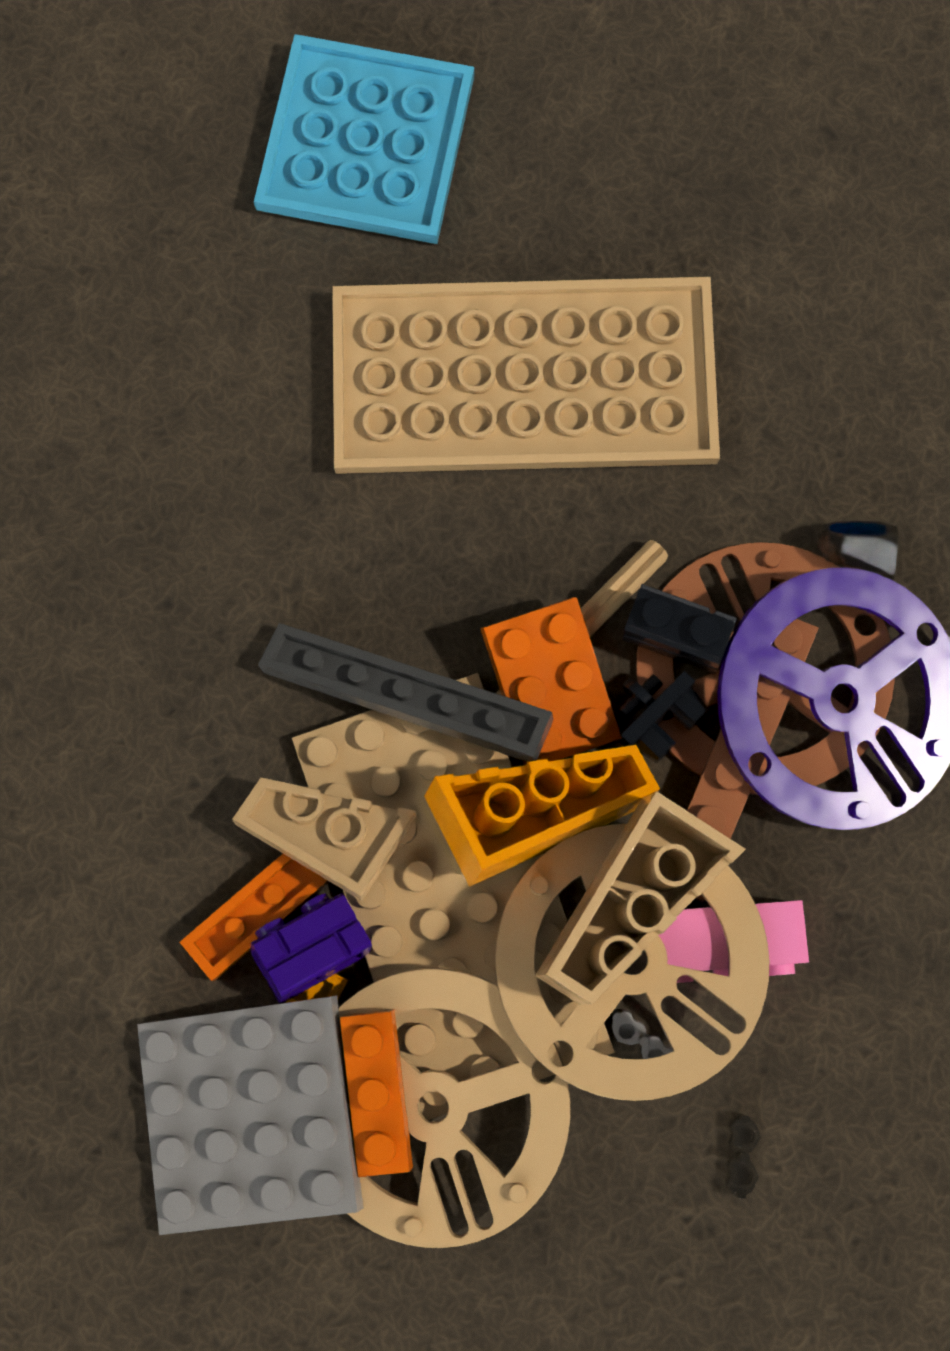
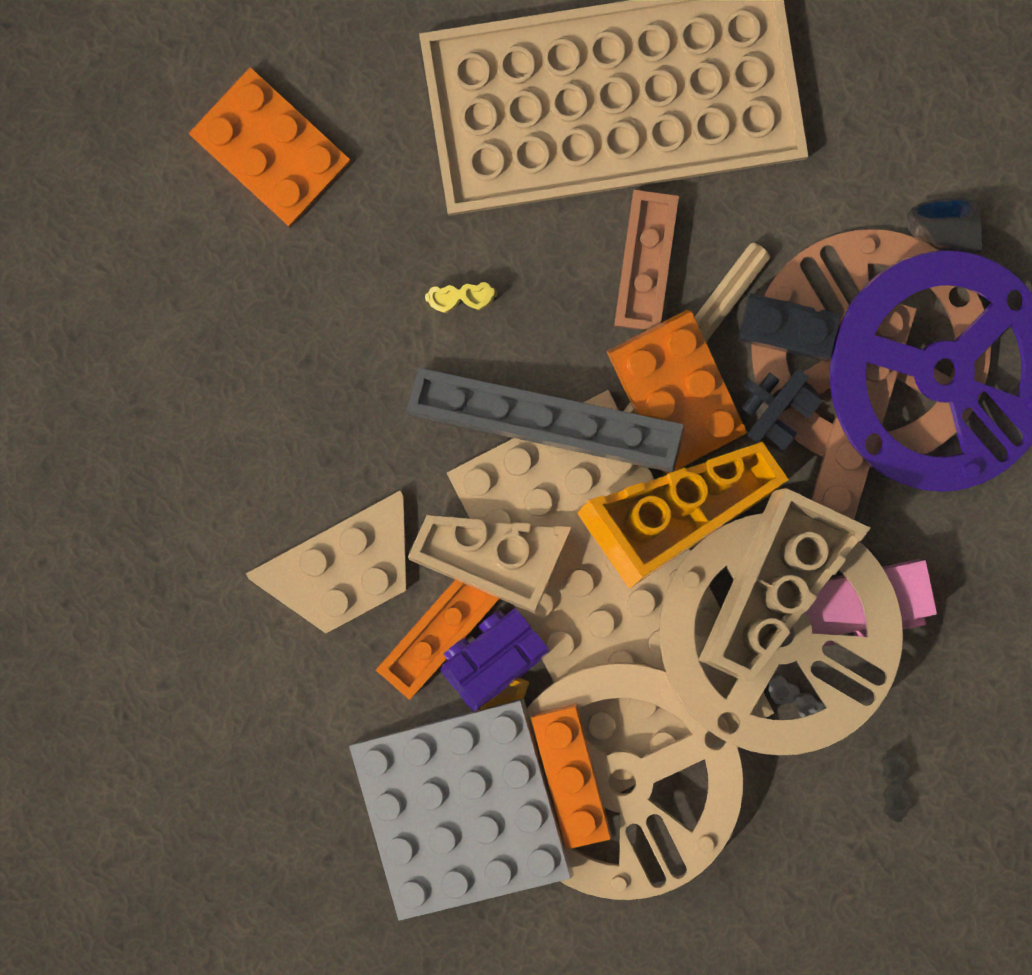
camera: 15 degrees left, 10 degrees up
(162, 382) = (269, 147): none -> orange plate
(164, 826) = (342, 568): none -> tan wing
(322, 554) = (472, 295): none -> light yellow piece
(536, 543) = (646, 260): none -> nougat plate

